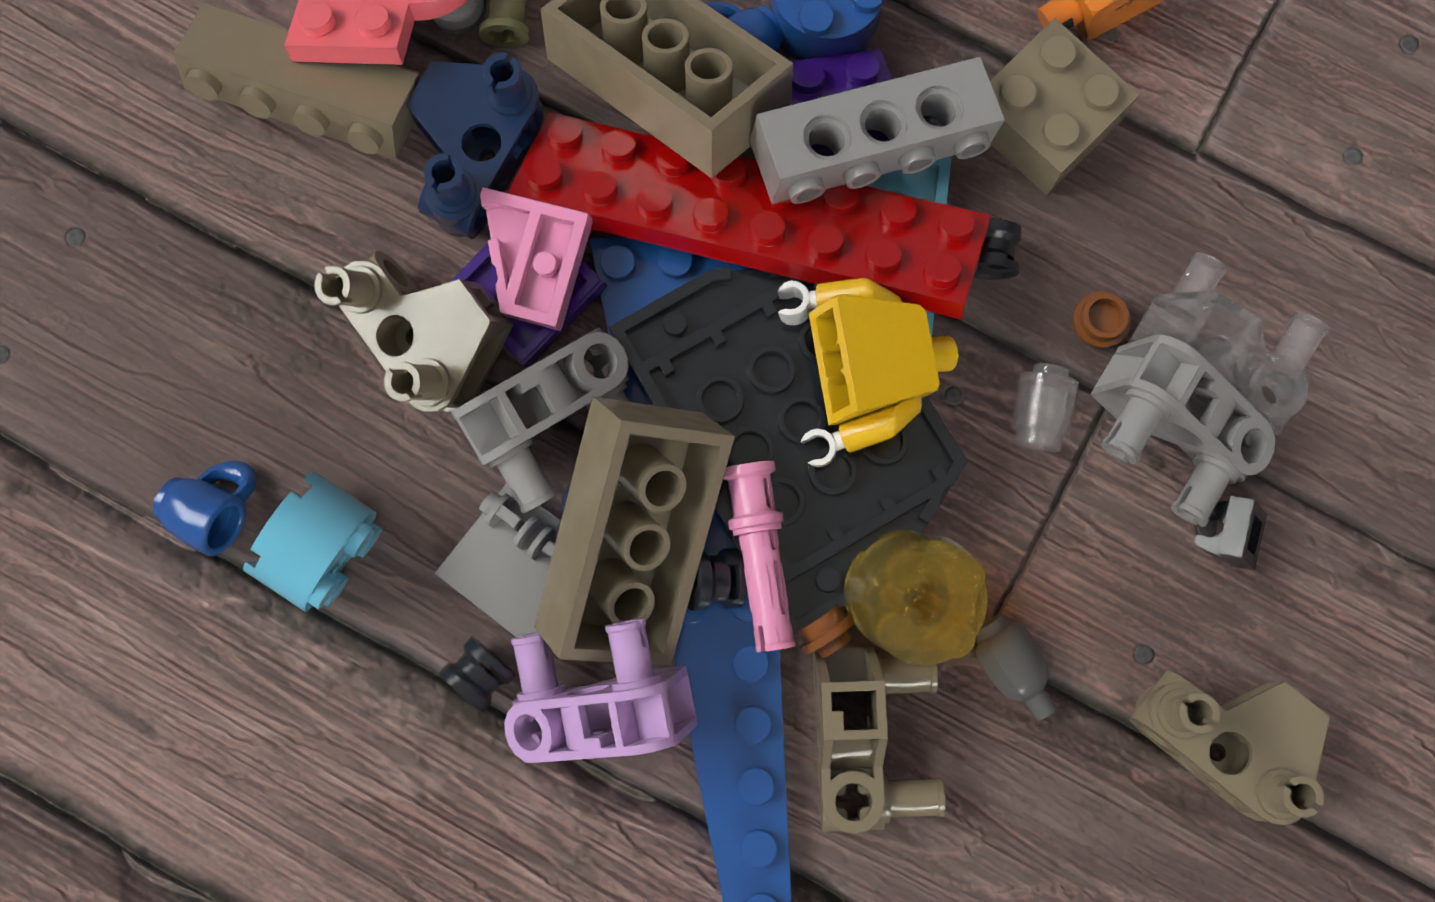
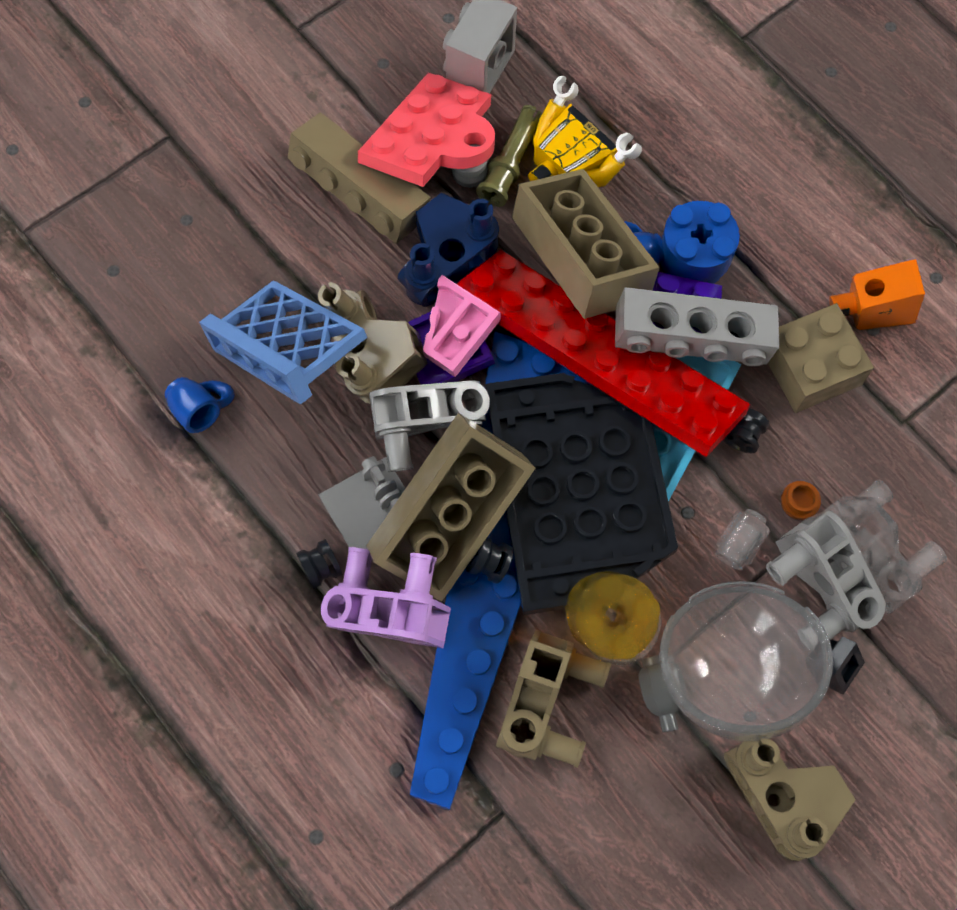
camera: 20 degrees right, 10 degrees down
(269, 408) = (261, 355): none -> medium blue fence
(312, 542) = (252, 444): medium azure brick -> none
(757, 525) = (528, 533): bright pink pin -> none
(827, 633) = (547, 617): dark orange plate -> none
(870, 359) = (639, 459): yellow torso -> none
(1123, 590) = (745, 661): none -> clear piece

